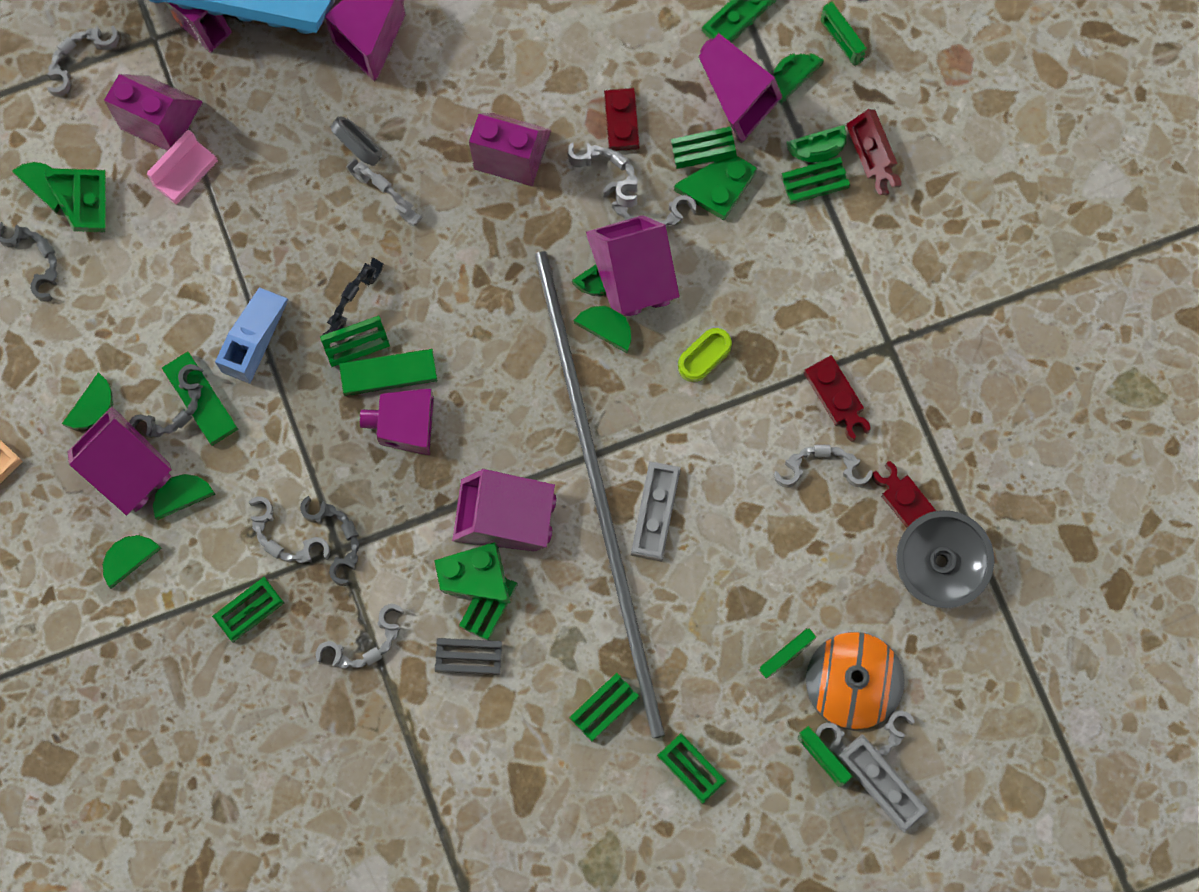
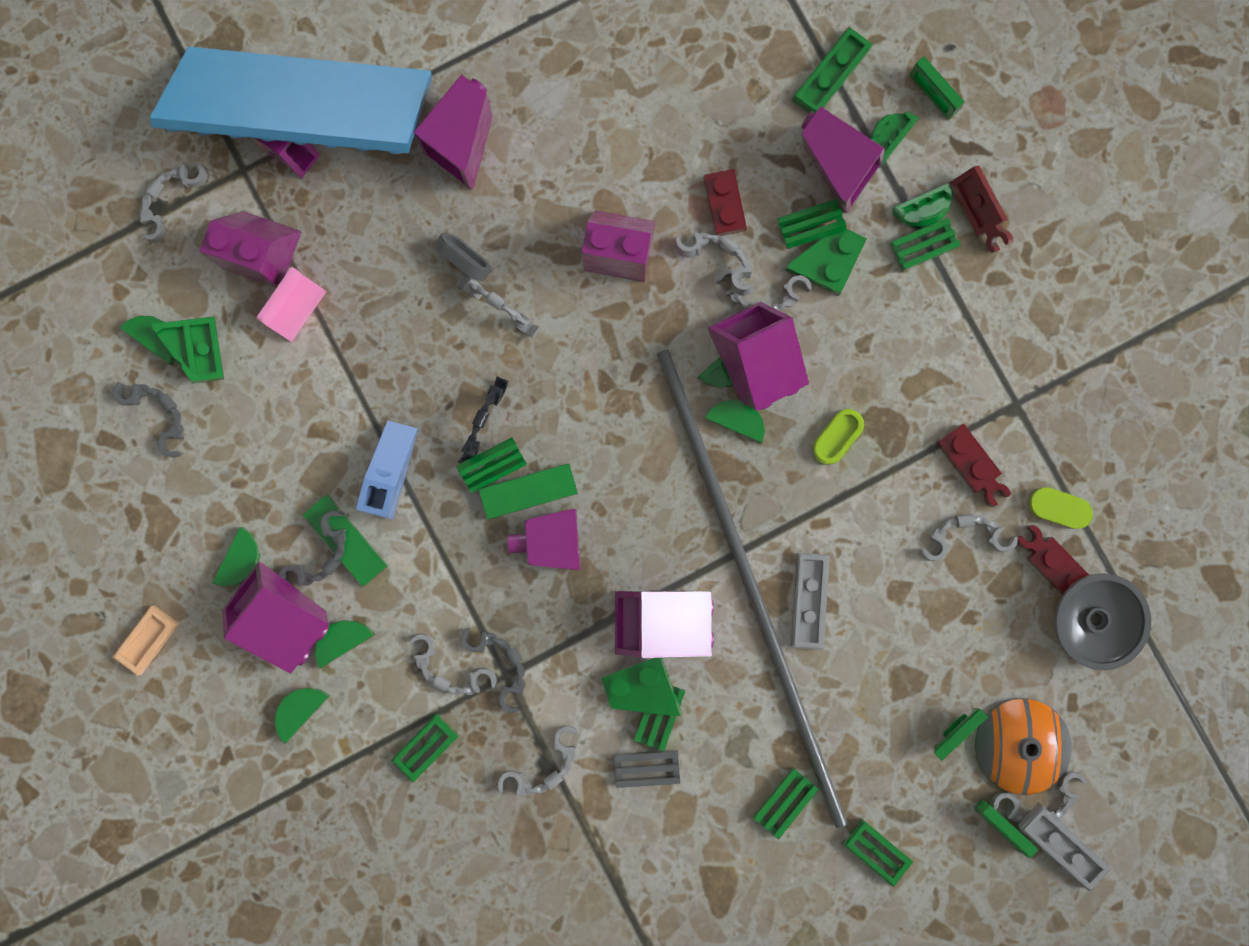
camera: 10 degrees left, 10 degrees up
(920, 449) = (1060, 508): none -> lime tile

